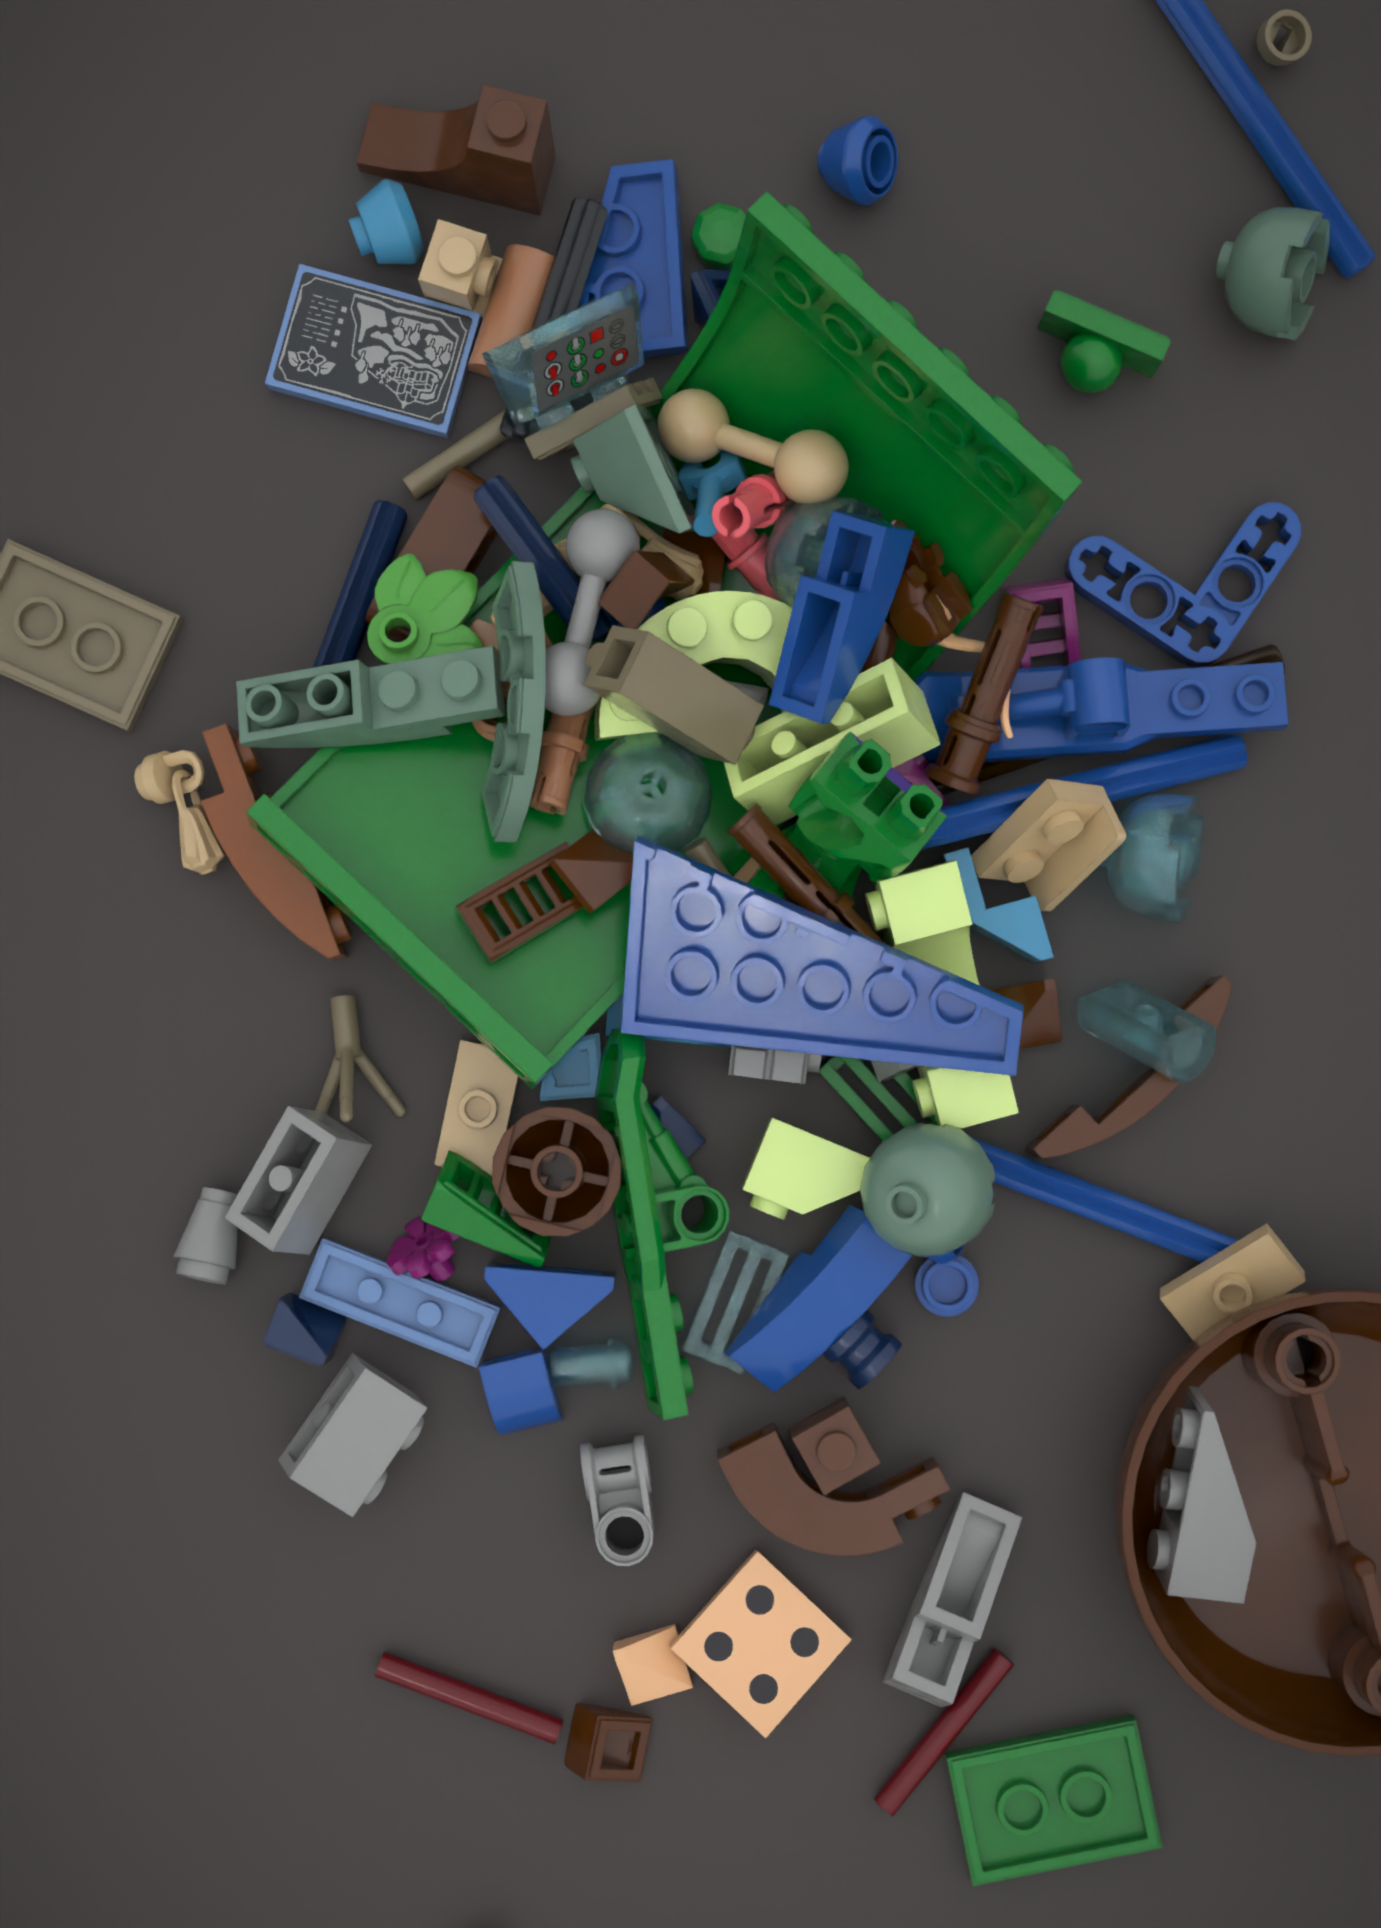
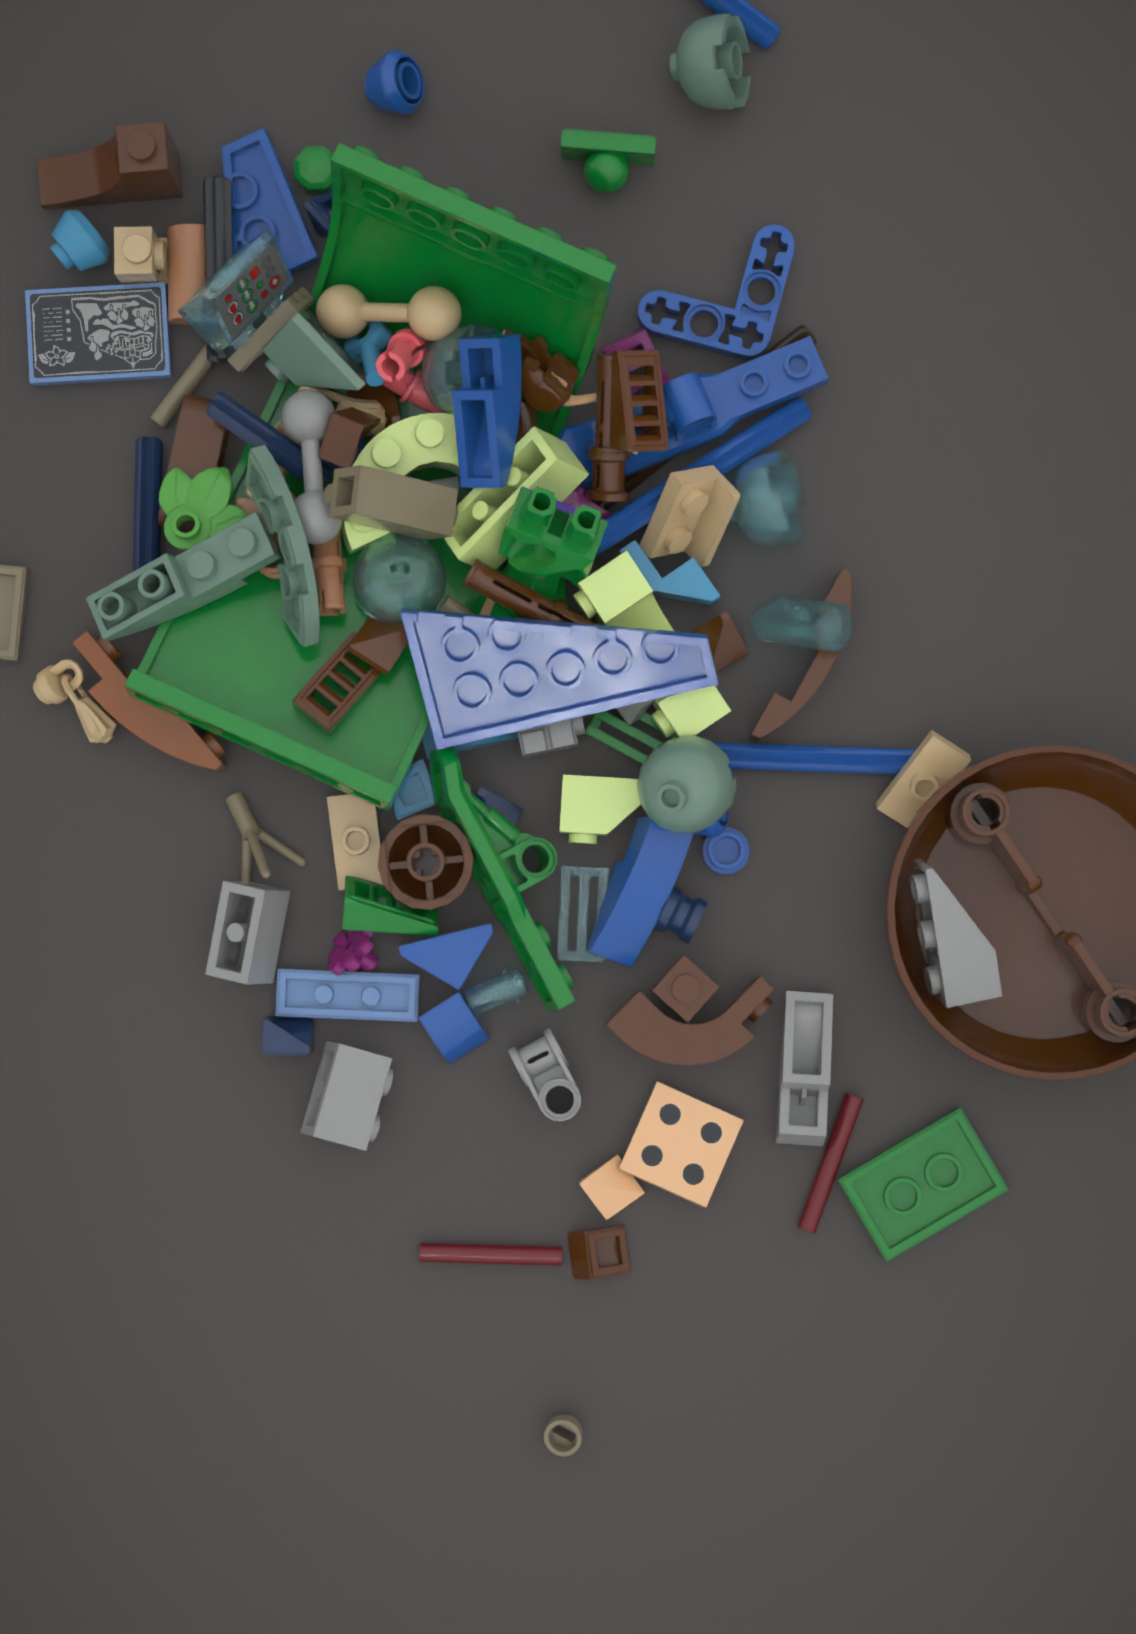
camera: 20 degrees left, 0 degrees up
(209, 1239) = (199, 996): light grey cone -> none
(1050, 697) = (653, 416): none -> reddish brown slope

